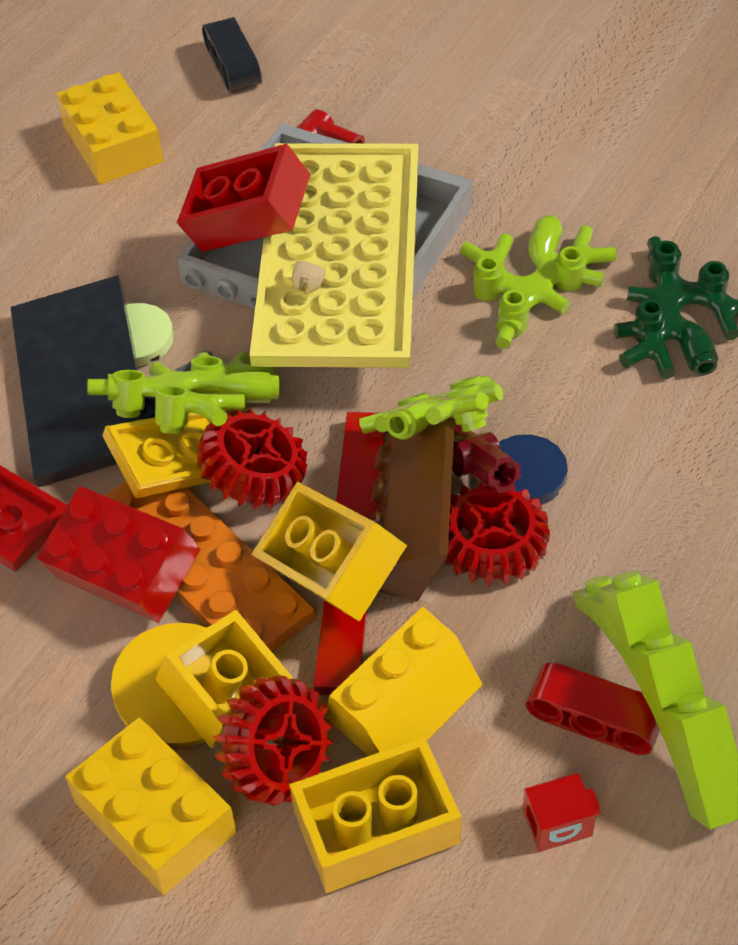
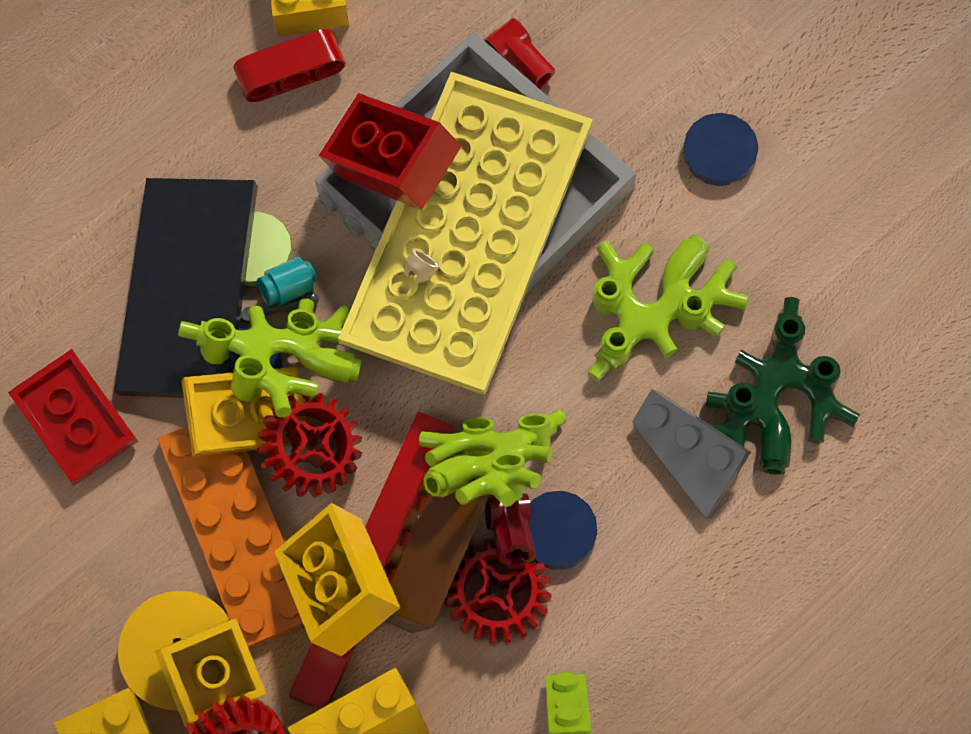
camera: 20 degrees right, 20 degrees up
(119, 194) = (289, 65): none -> red beam
(119, 553) = (160, 512): red brick -> none
(178, 344) = (287, 281): none -> teal brick
(535, 159) = (720, 149): none -> dark blue tile
(625, 367) = (691, 449): none -> dark grey wing

